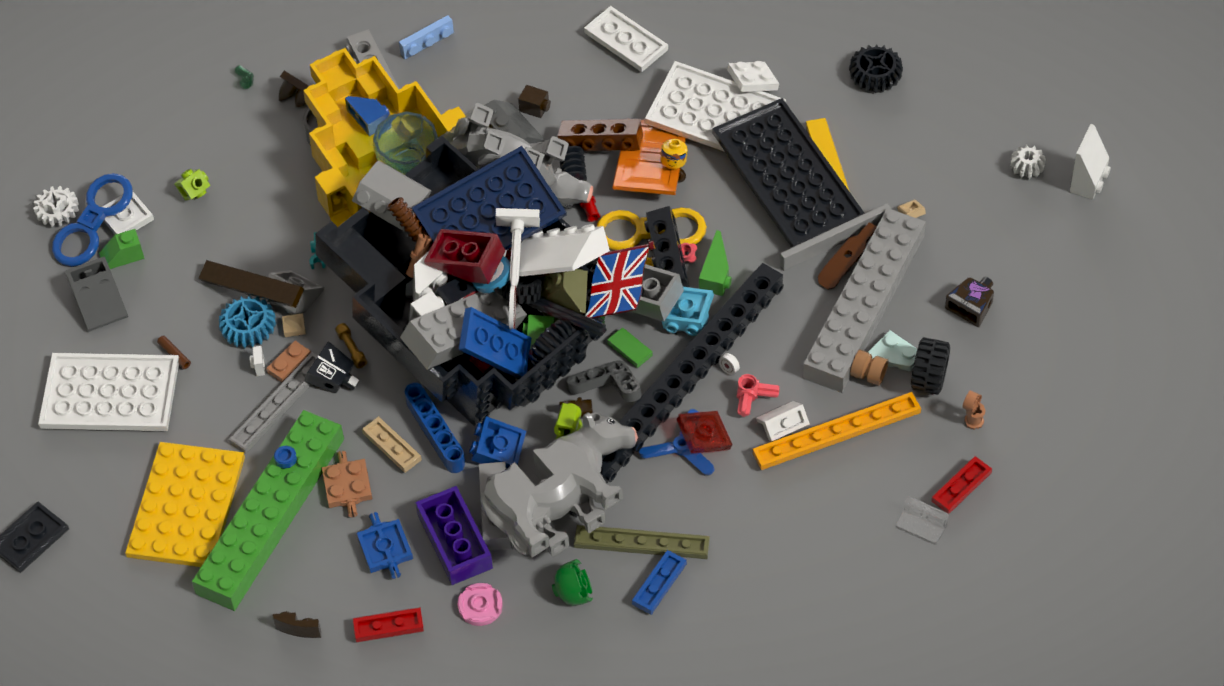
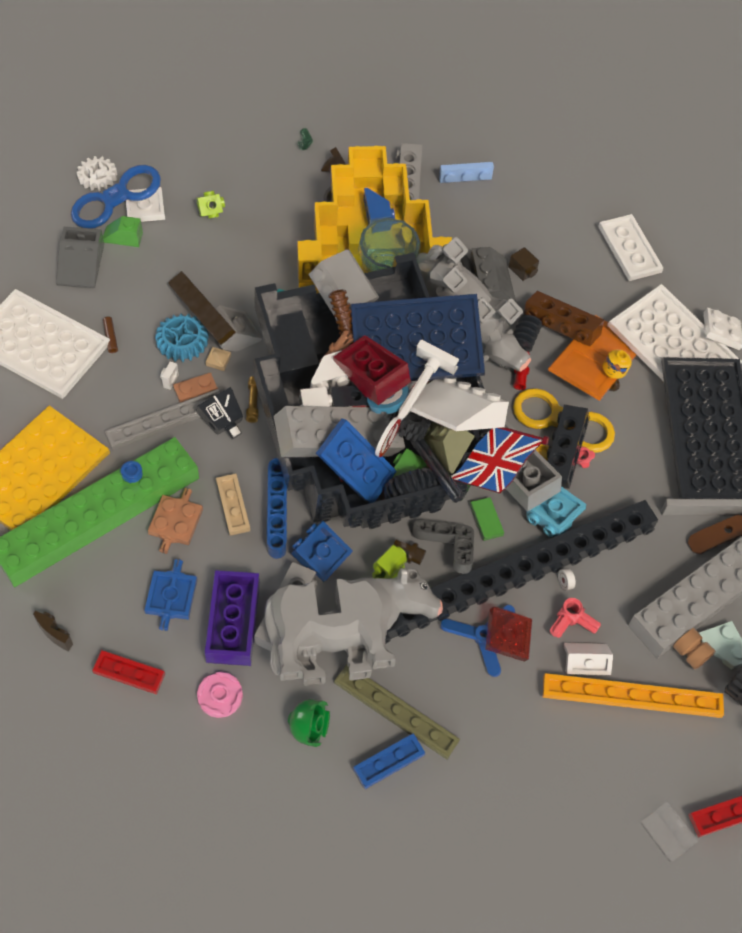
camera: 20 degrees right, 5 degrees up
(715, 269) = (598, 487): bright green slope -> none

